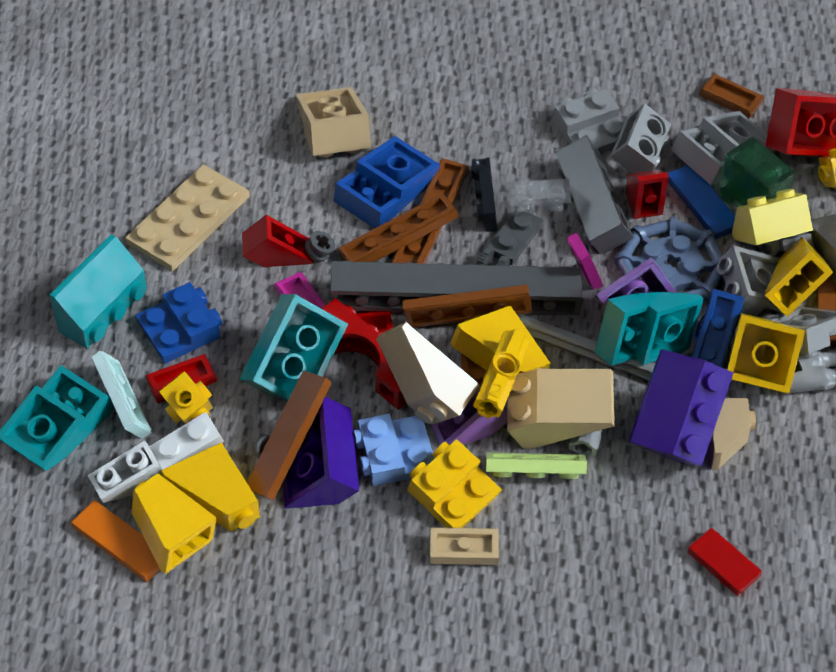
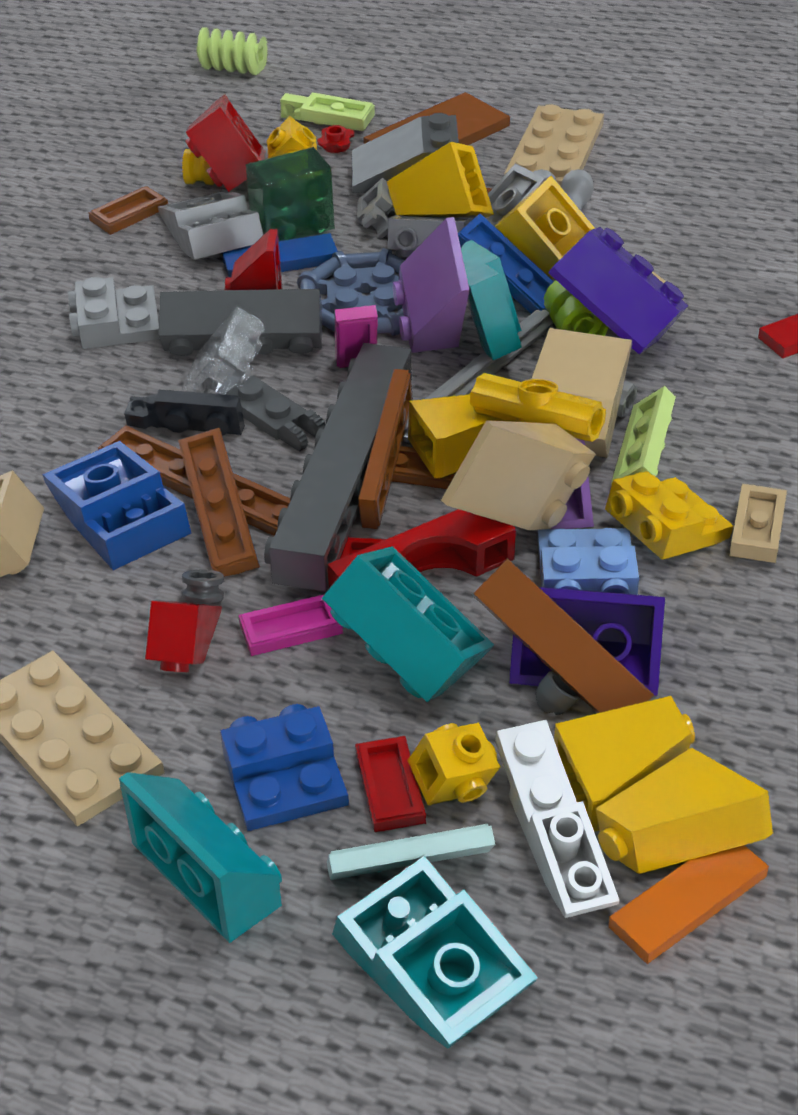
camera: 75 degrees left, 10 degrees down
(641, 140) = (171, 268): light grey brick -> none
(772, 218) = (359, 192): light yellow slope -> none

